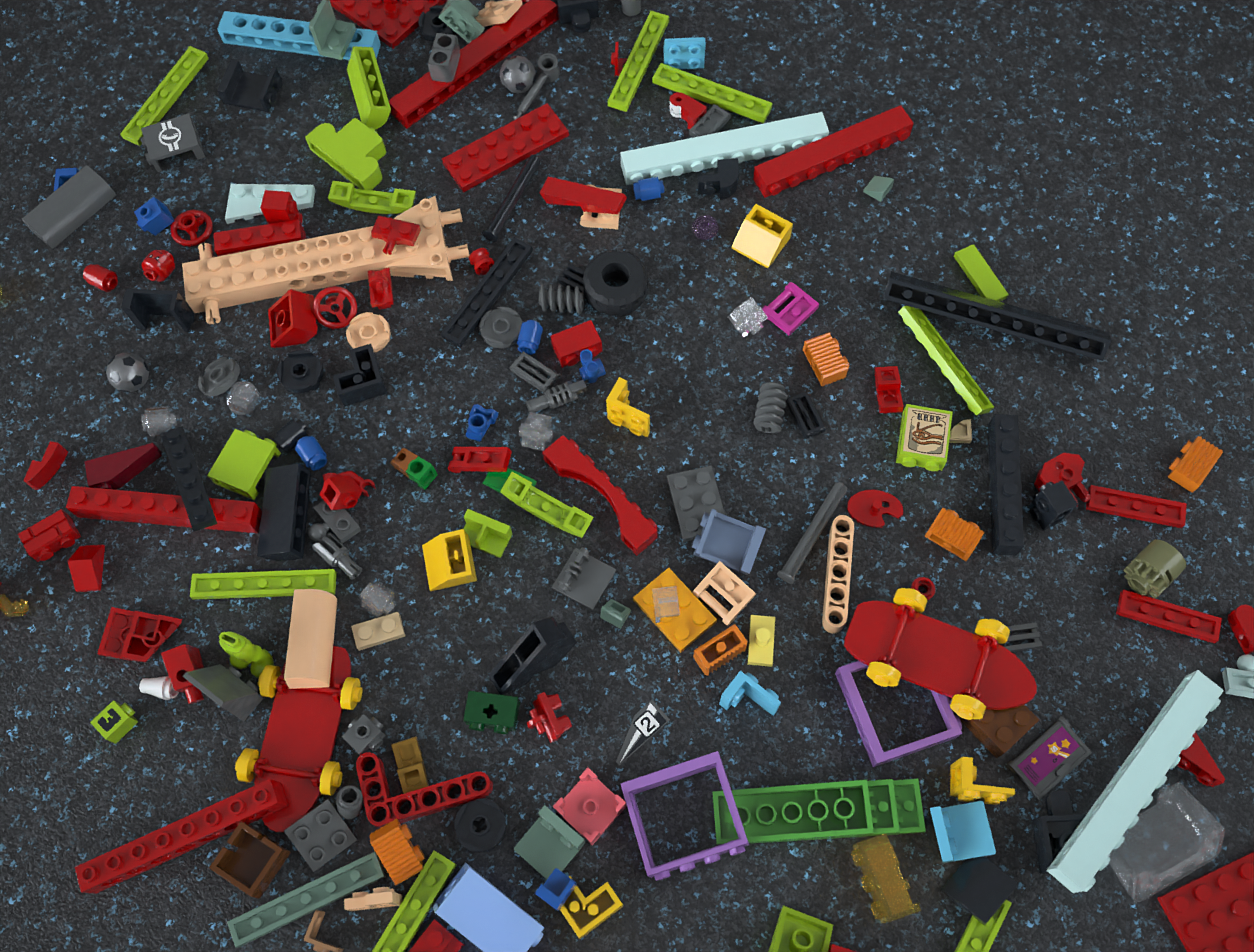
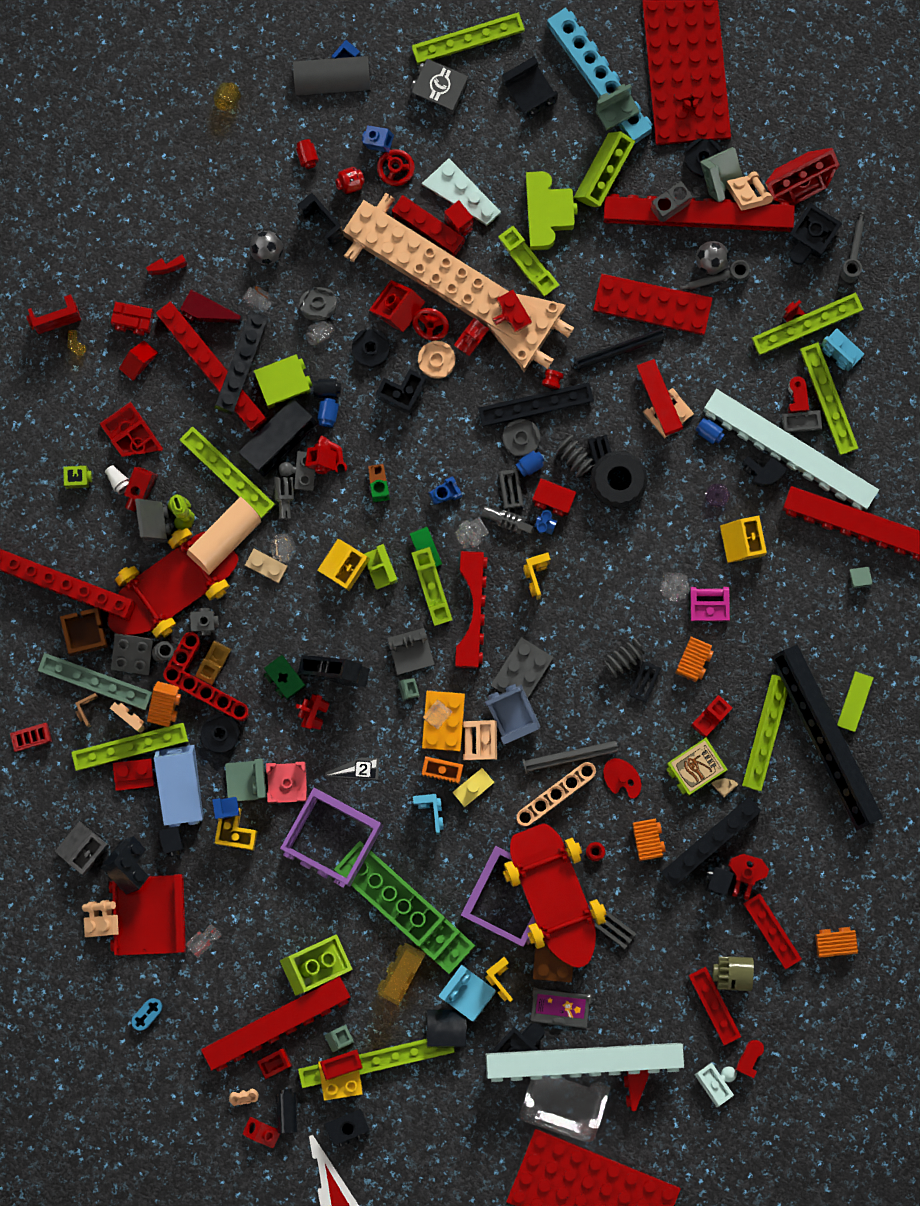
camera: 45 degrees right, 15 degrees up
(480, 459) = (421, 518): red plate -> none

